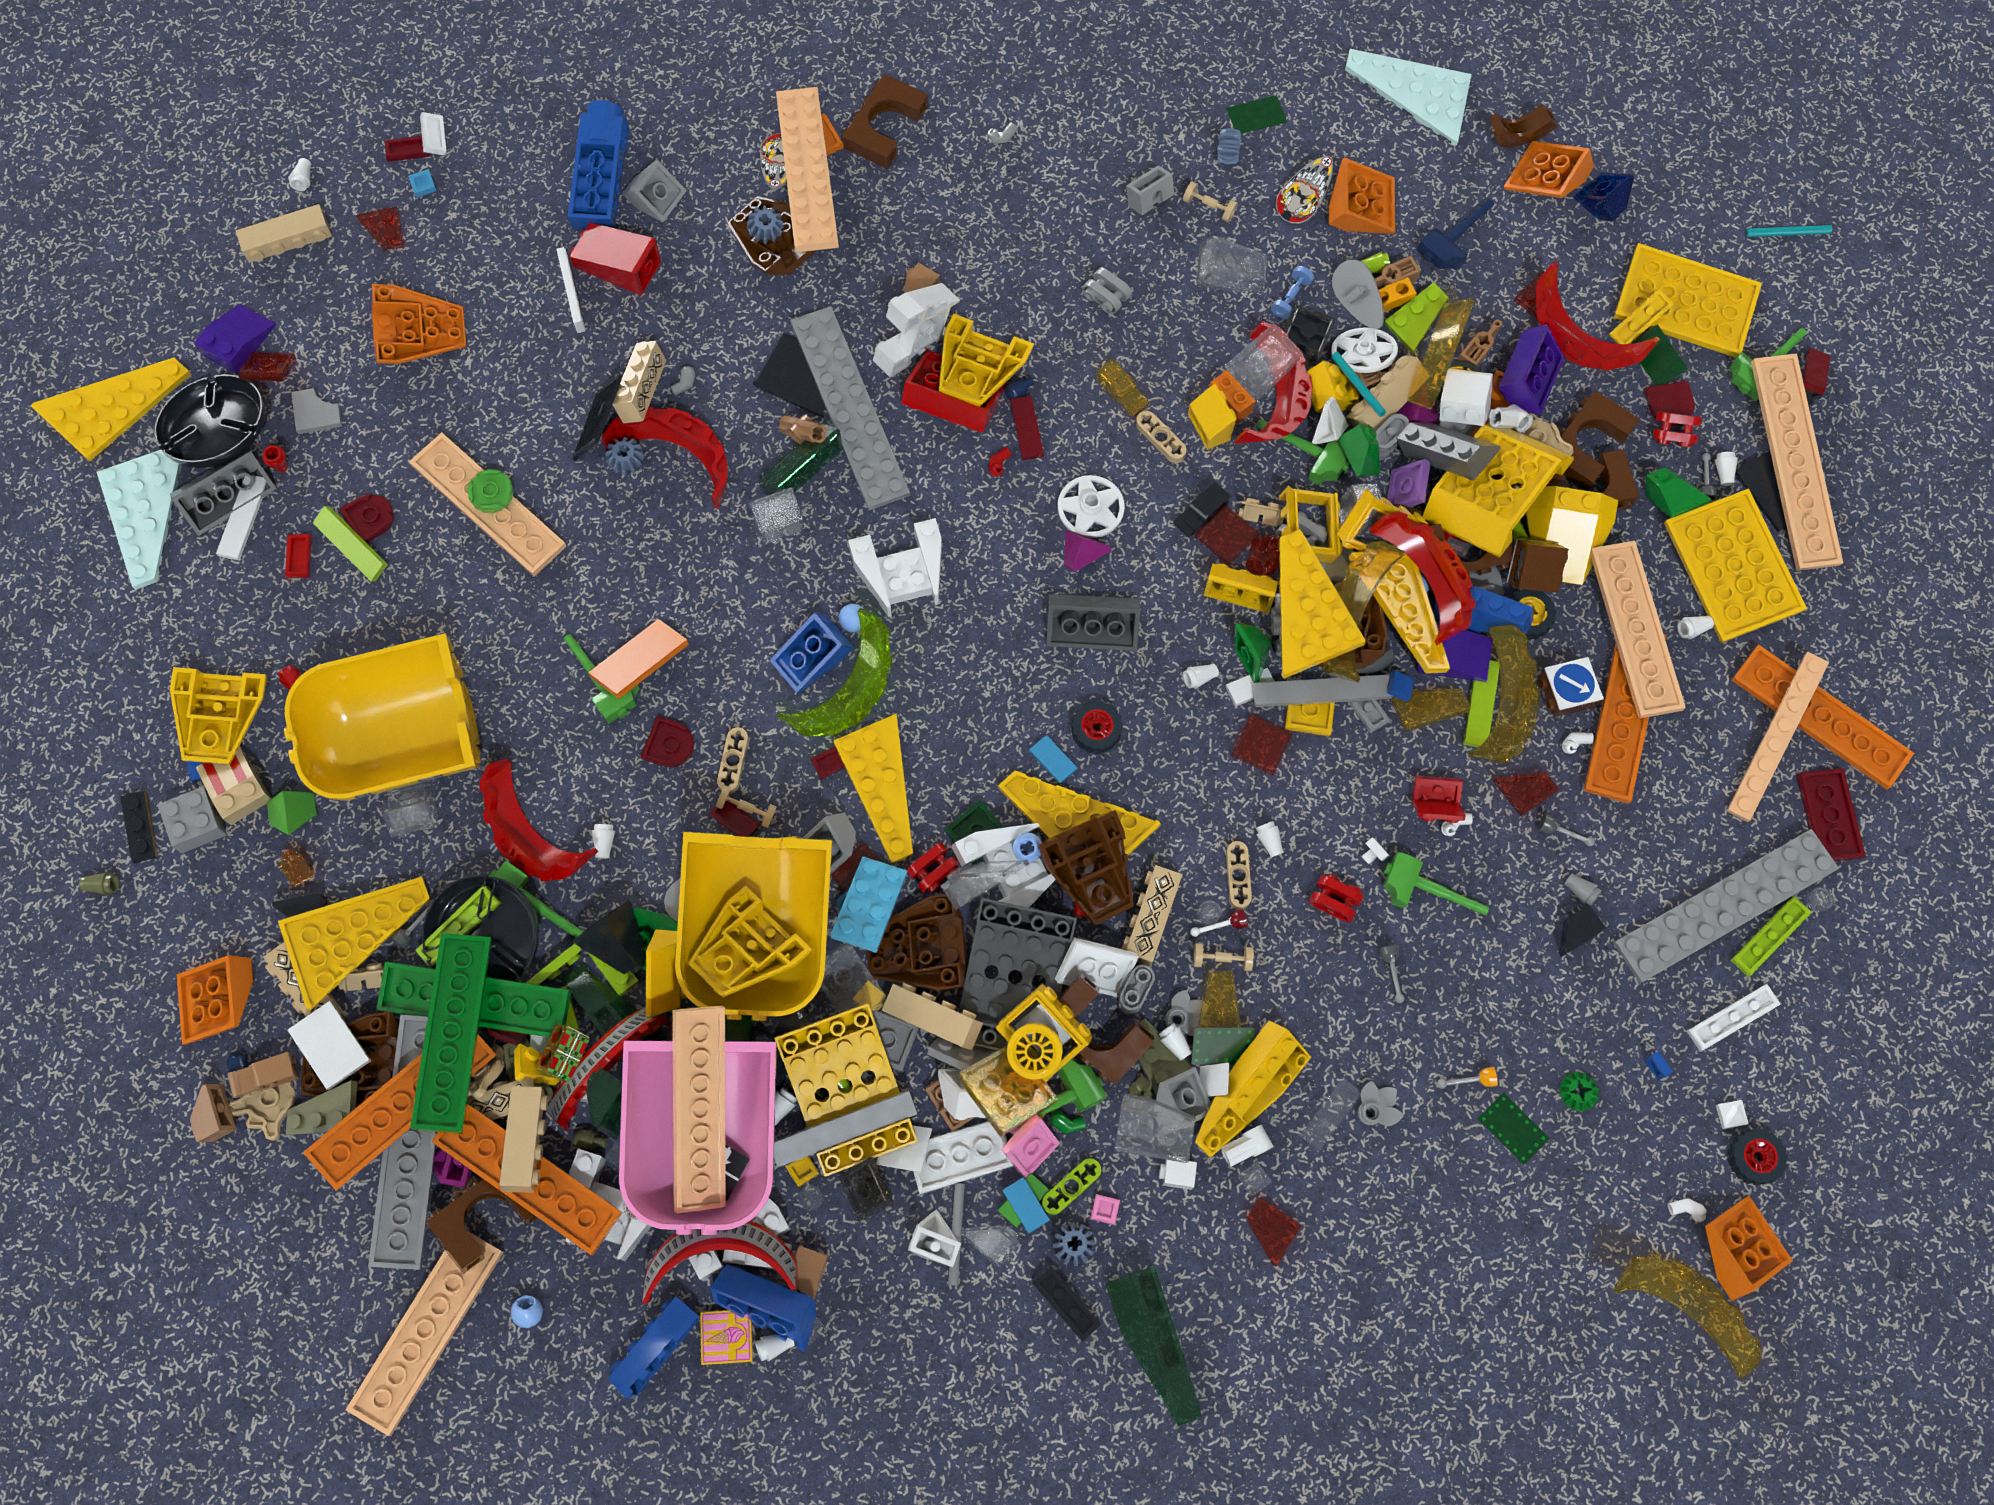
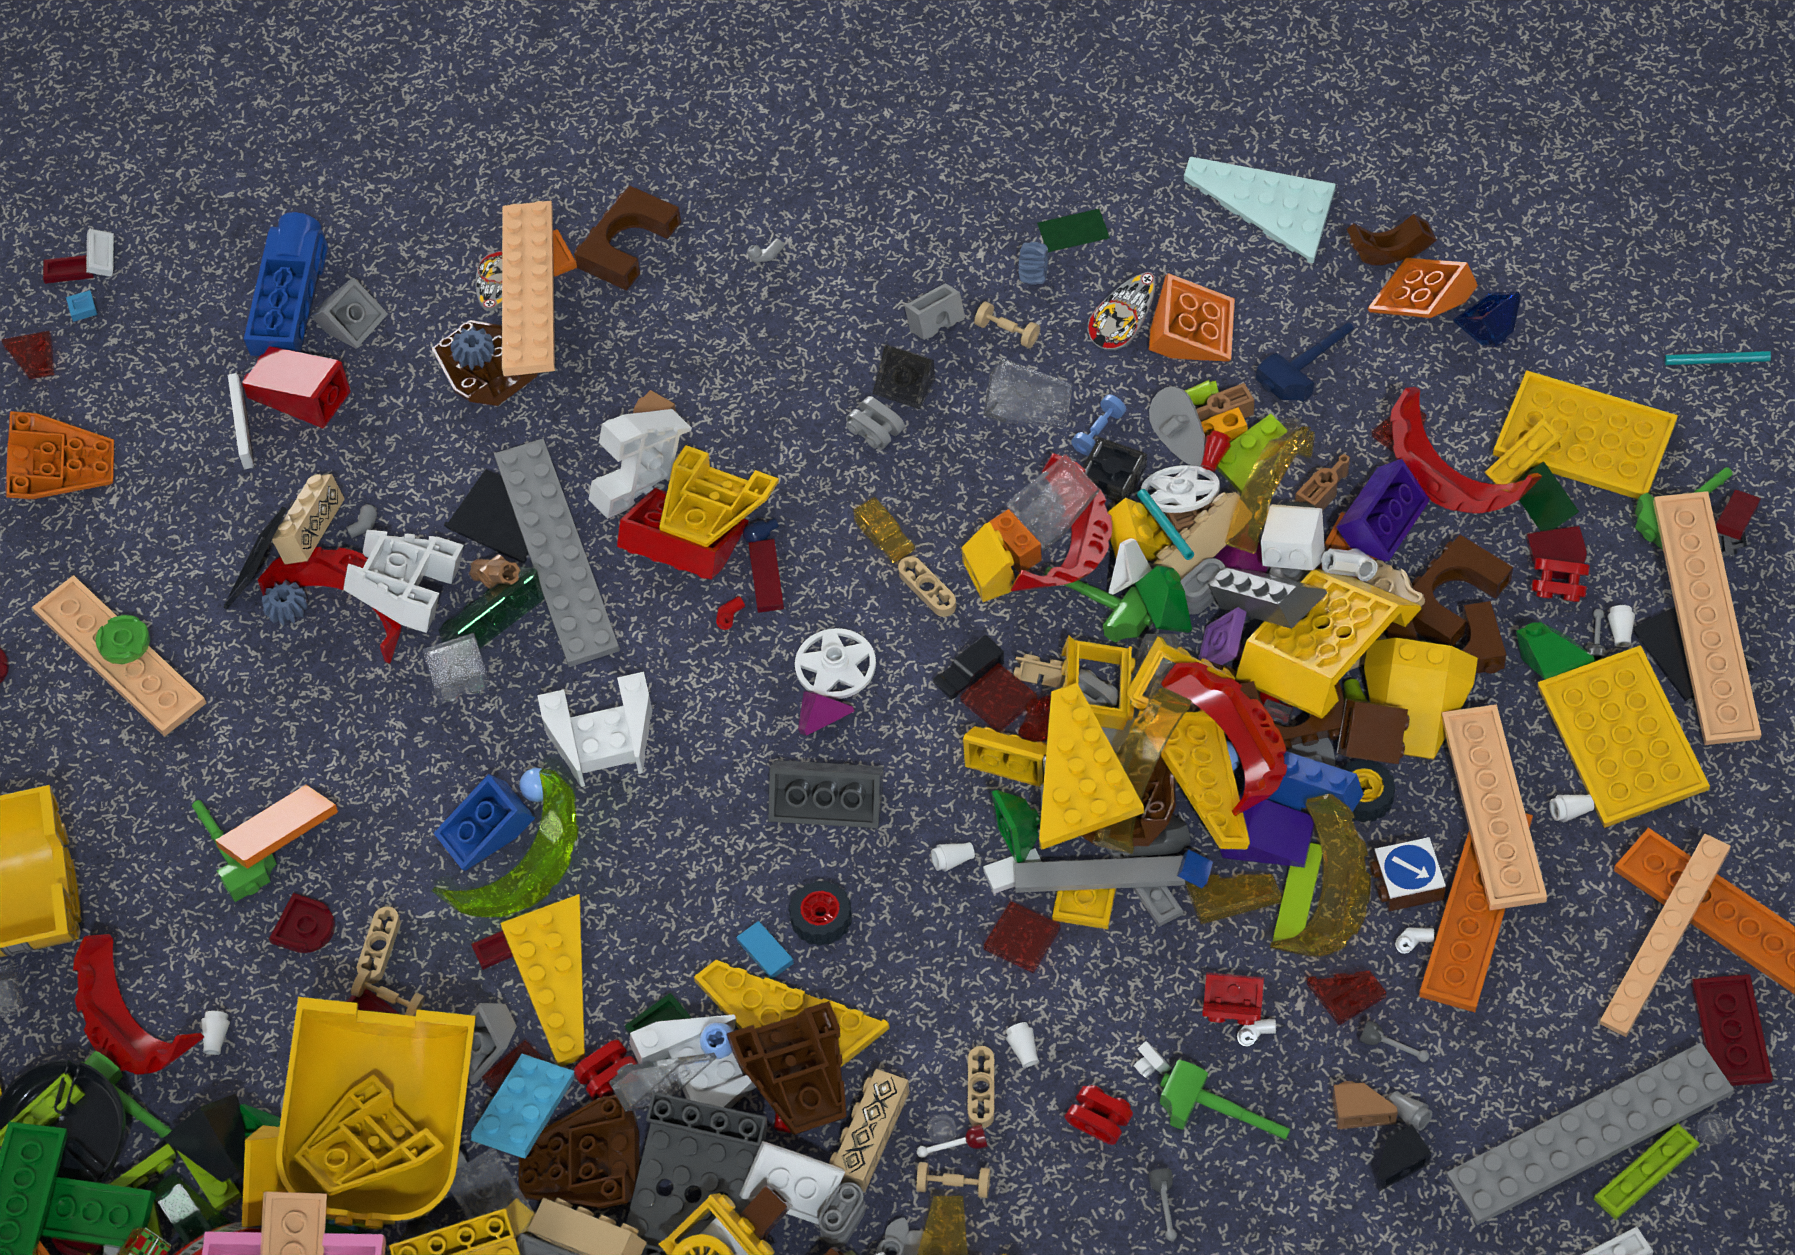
camera: 10 degrees right, 15 degrees down
(719, 432) = (394, 574): none -> white wedge
(1128, 249) = (904, 377): none -> clear smoke slope
(1392, 314) = (1216, 447): none -> red cone
(1544, 887) = (1361, 1106): none -> medium nougat slope

